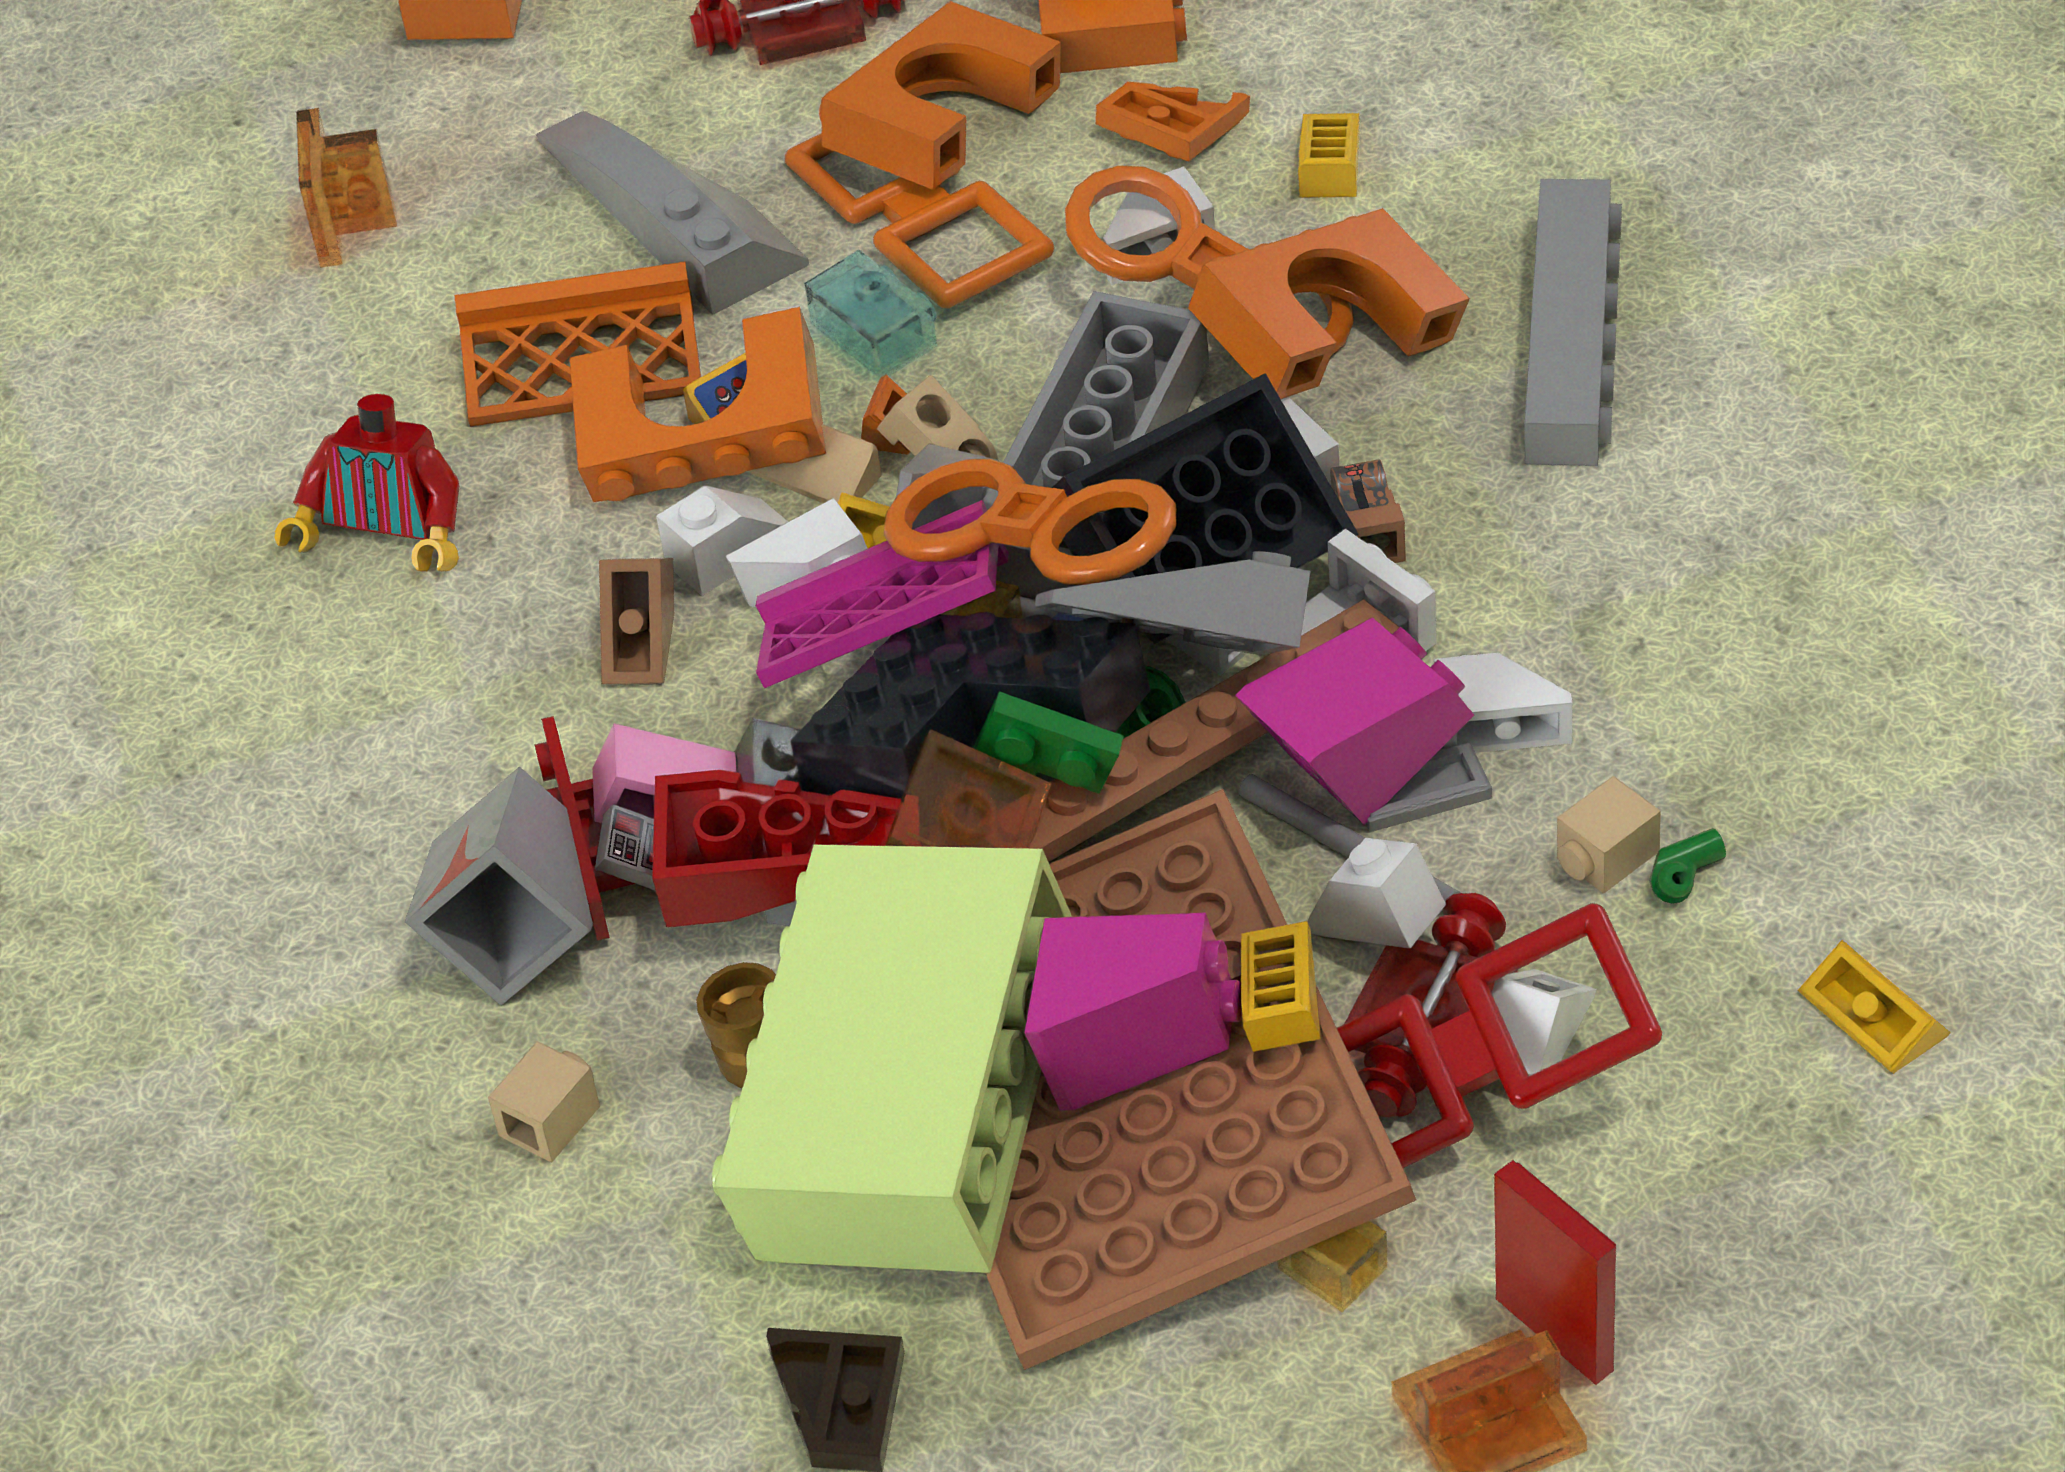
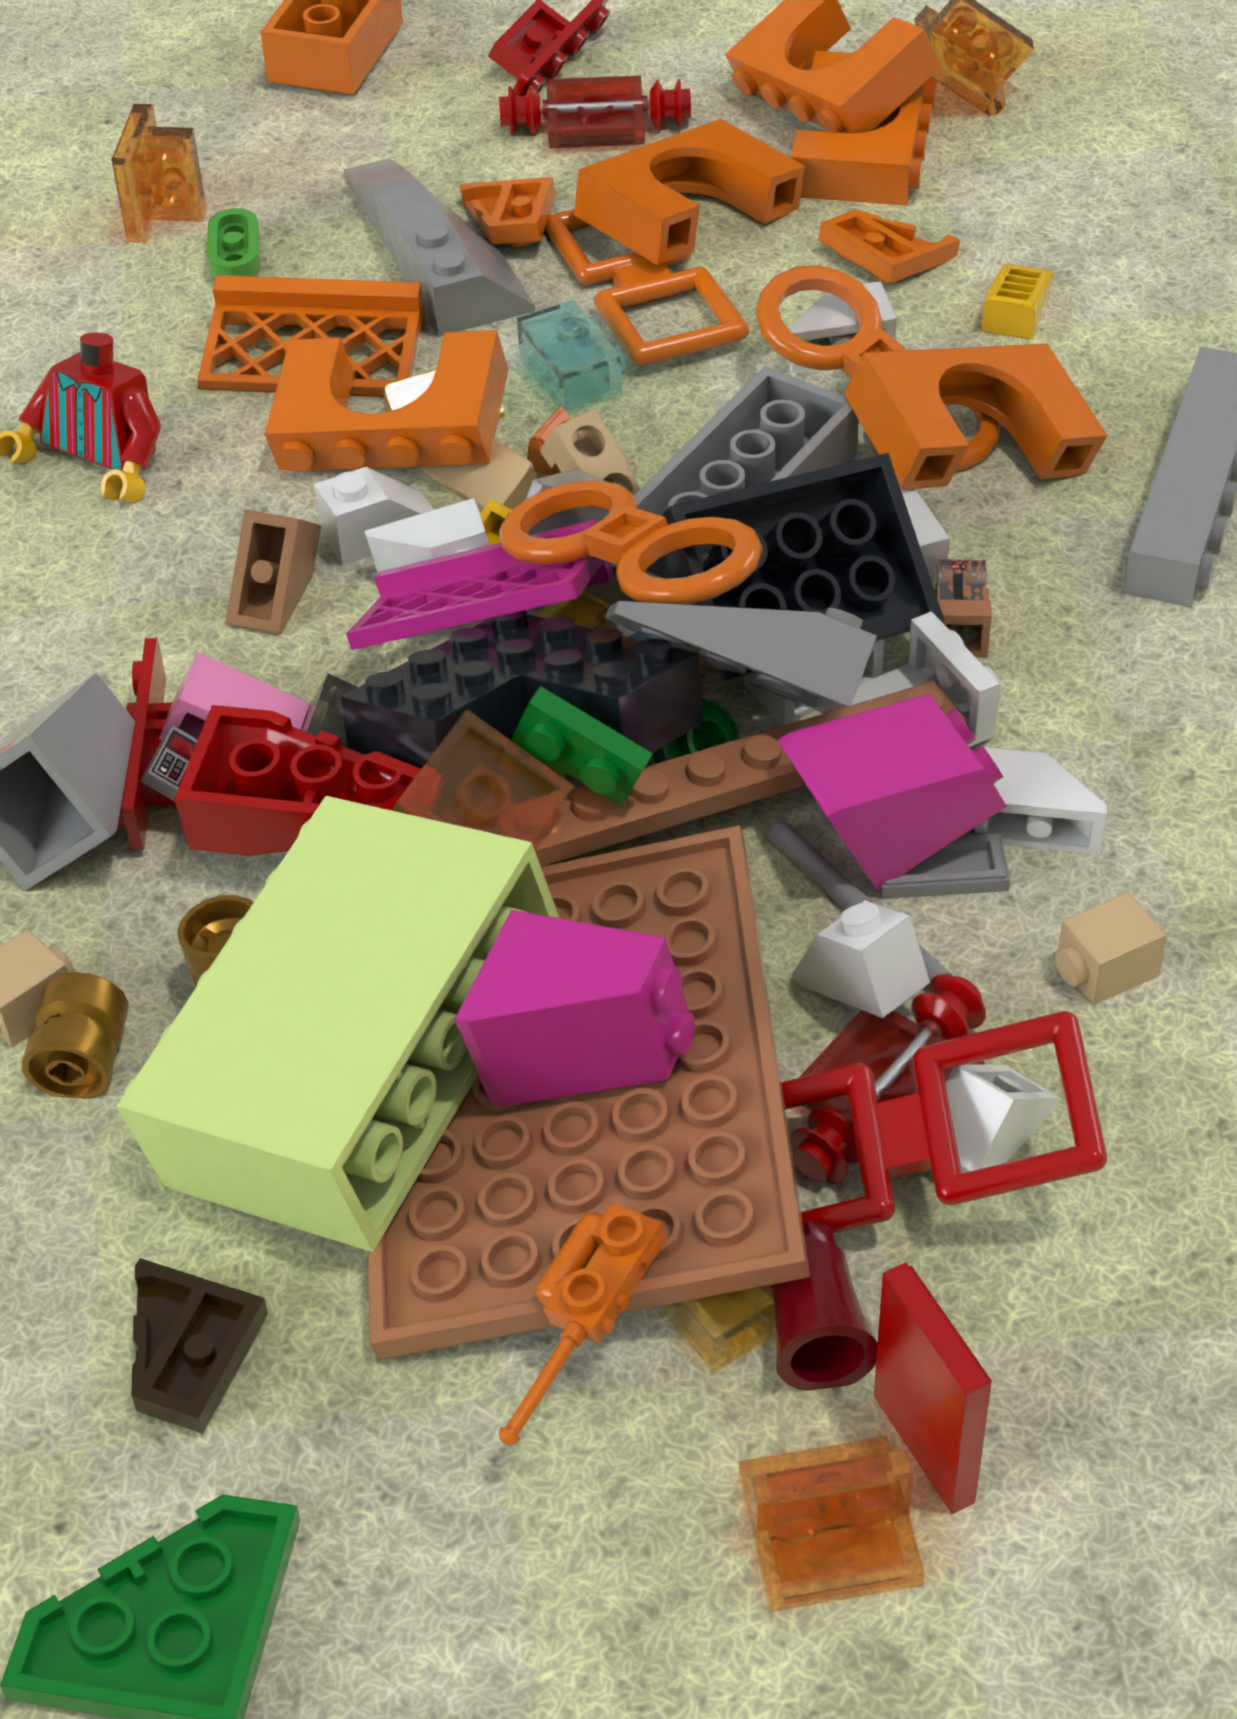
camera: 10 degrees right, 0 degrees up
(449, 251) = (233, 243): none -> bright green plate
(622, 1135) = (75, 1036): none -> pearl gold wheel
(743, 150) = (510, 209): none -> orange wing
(1220, 1263) = (591, 1297): none -> orange piece
(1284, 1022) = (729, 1065): yellow slope -> none
(1433, 1242) = (820, 1321): none -> dark red plant
(1677, 864) = (1175, 989): green arm -> none

